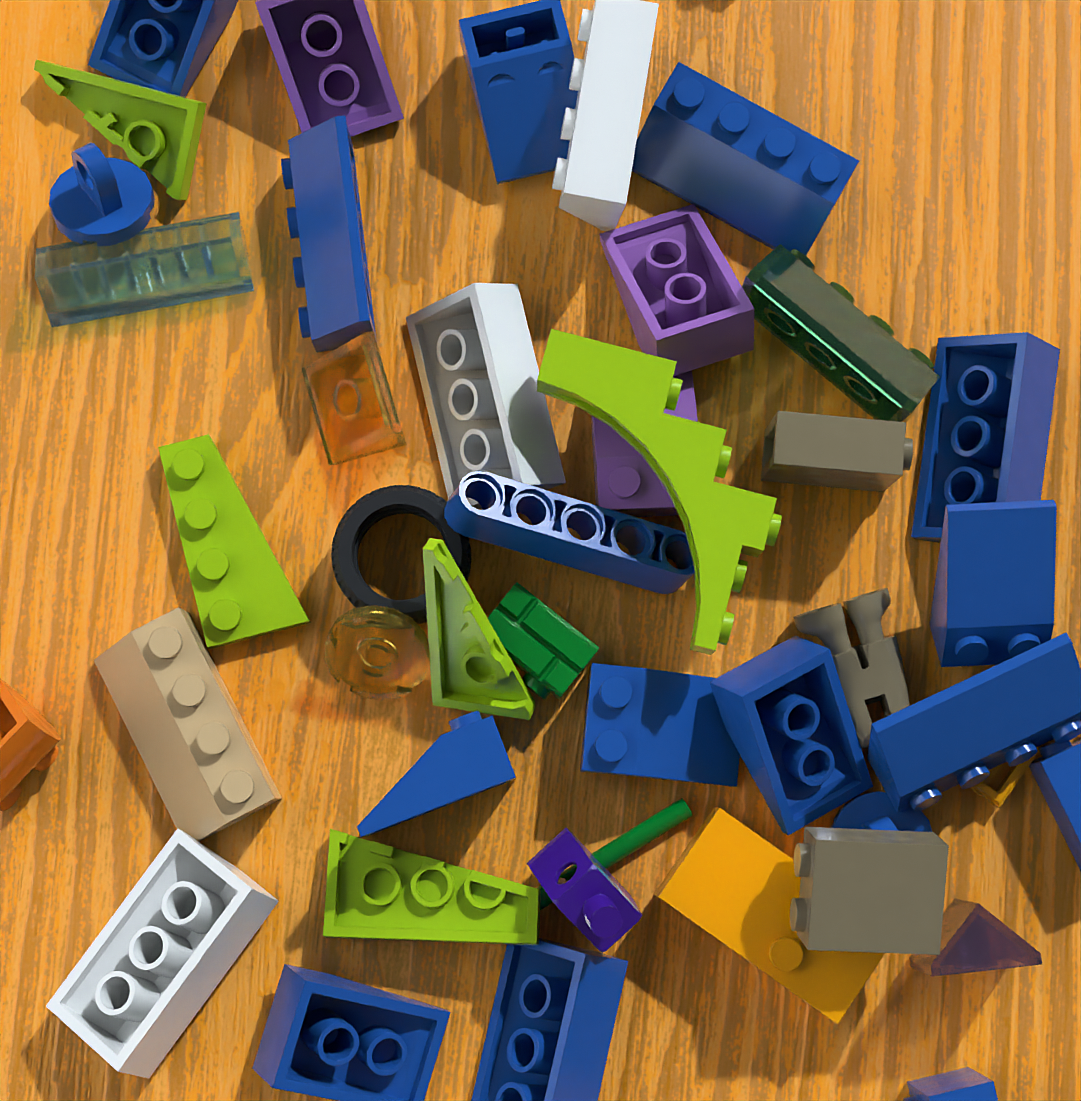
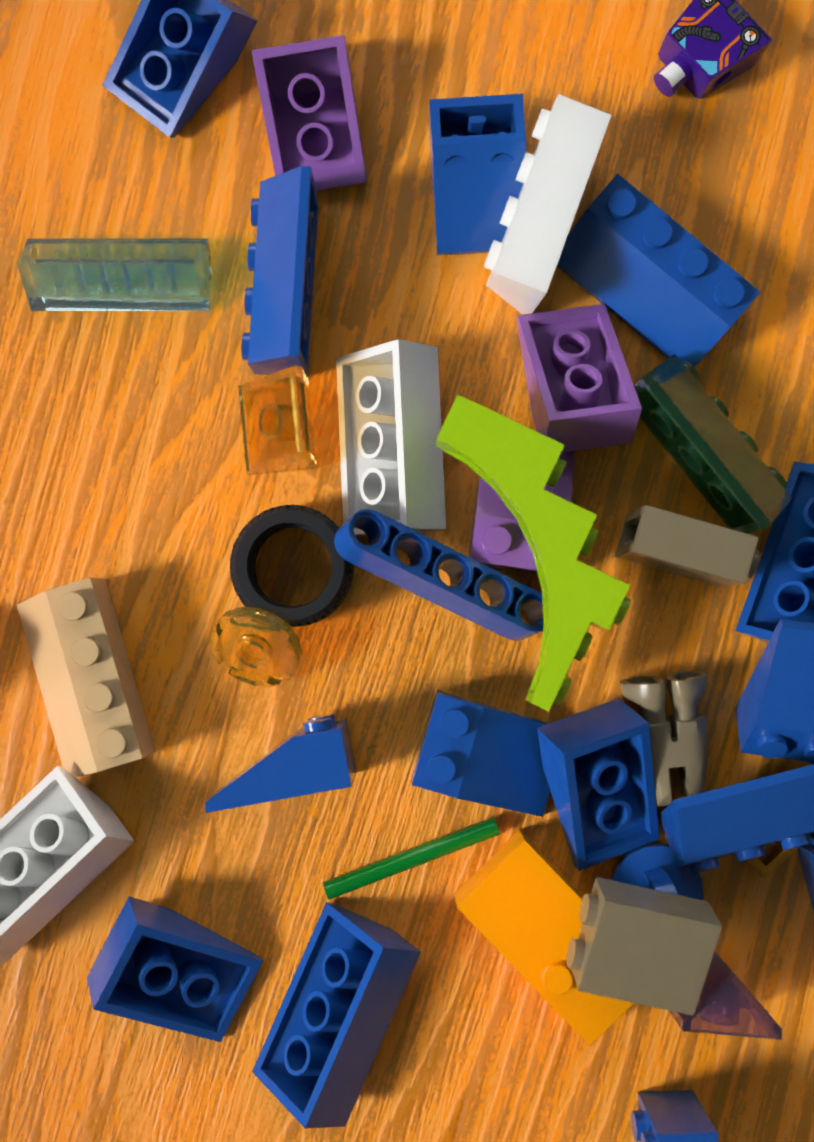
camera: 20 degrees right, 5 degrees up
(101, 198) = (89, 204): blue tile -> none
(150, 125) = (145, 147): lime wing -> none
(229, 561) = (144, 529): lime wing -> none
(412, 897) = (255, 864): lime wing -> none
(465, 654) = (329, 660): lime wing -> none
(540, 642) = (394, 663): green brick -> none
(591, 897) = (406, 901): dark purple torso -> none

